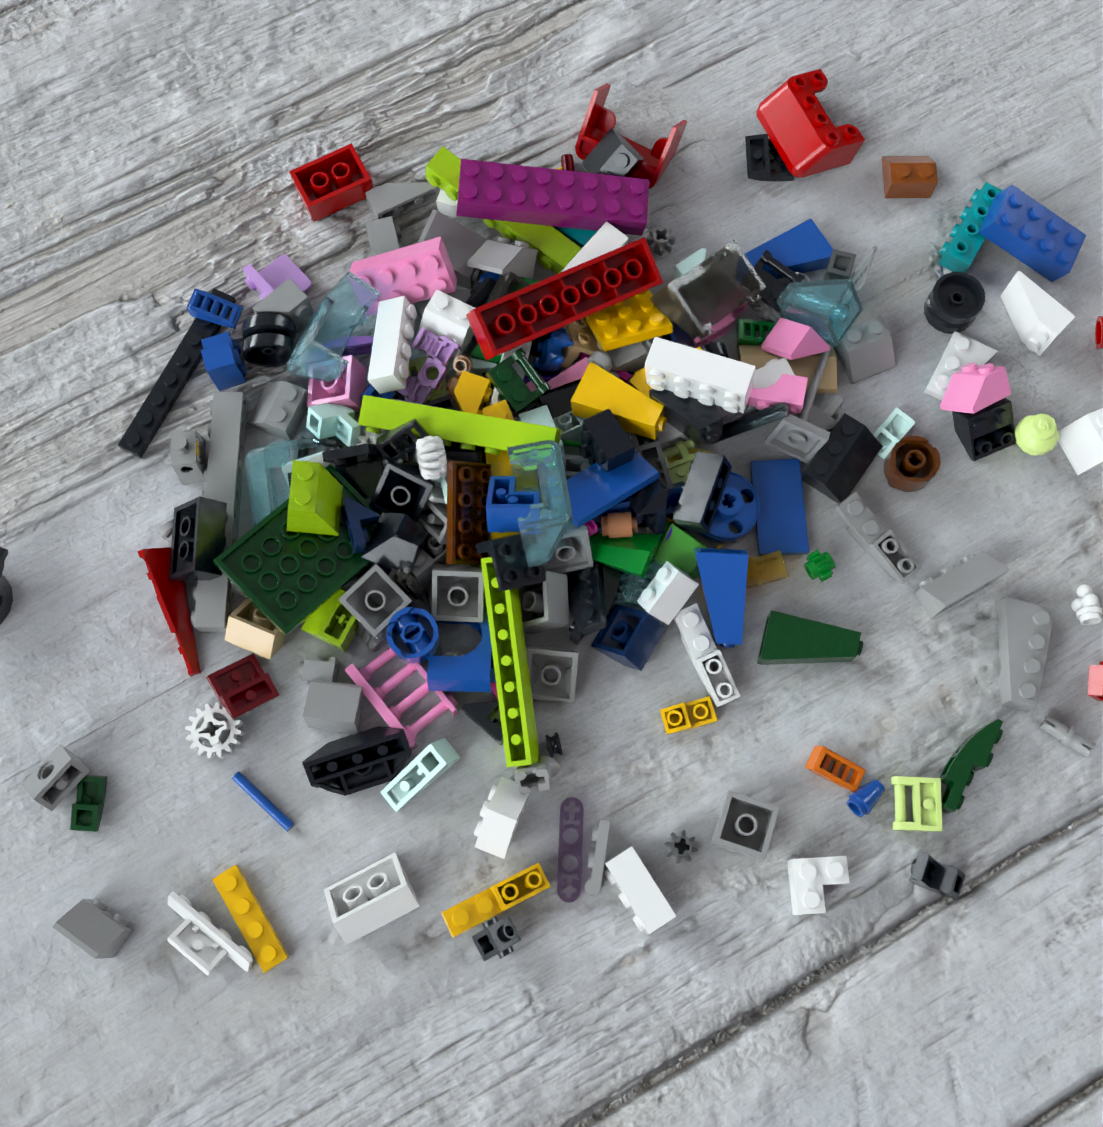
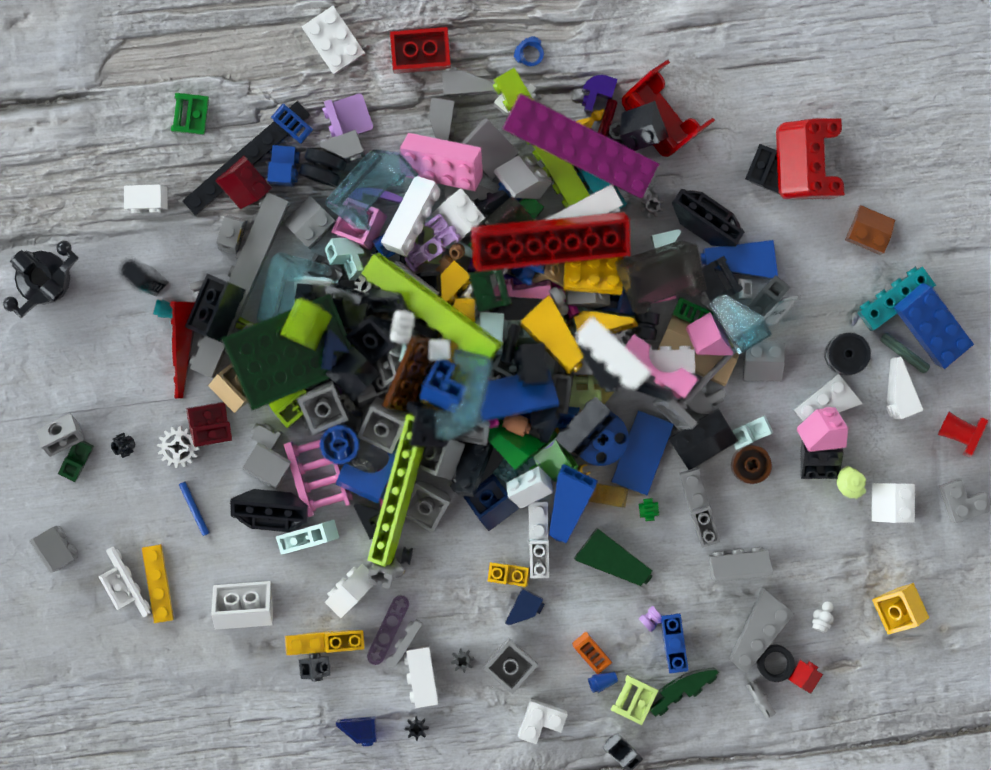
camera: 20 degrees right, 15 degrees up
(71, 456) = (145, 198): none -> white brick
(87, 526) = (142, 277): none -> black brick
(101, 348) = (196, 114): none -> green plate
(136, 575) = (163, 309): none -> teal cone
(142, 757) = (123, 445): none -> black gear
(182, 394) = (243, 183): none -> dark red slope
(231, 215) = (333, 40): none -> white plate
(456, 134) = (533, 42): none -> blue piece
(488, 463) = (439, 349): none -> white slope
(546, 147) = (599, 86): none -> dark purple brick
(570, 436) = (510, 343): none -> black axle
(590, 997) = (360, 729): none -> clear blue slope
(669, 965) = (412, 731): none -> black gear
(717, 228) = (707, 218): none -> black wedge
(728, 743) = (525, 607): none -> dark blue slope
(887, 693) = (651, 619): none -> lavender wheel
(930, 709) = (674, 643): none -> blue slope
(1003, 279) = (906, 353): none -> sand green axle
(1080, 679) = (789, 668): none -> black tyre

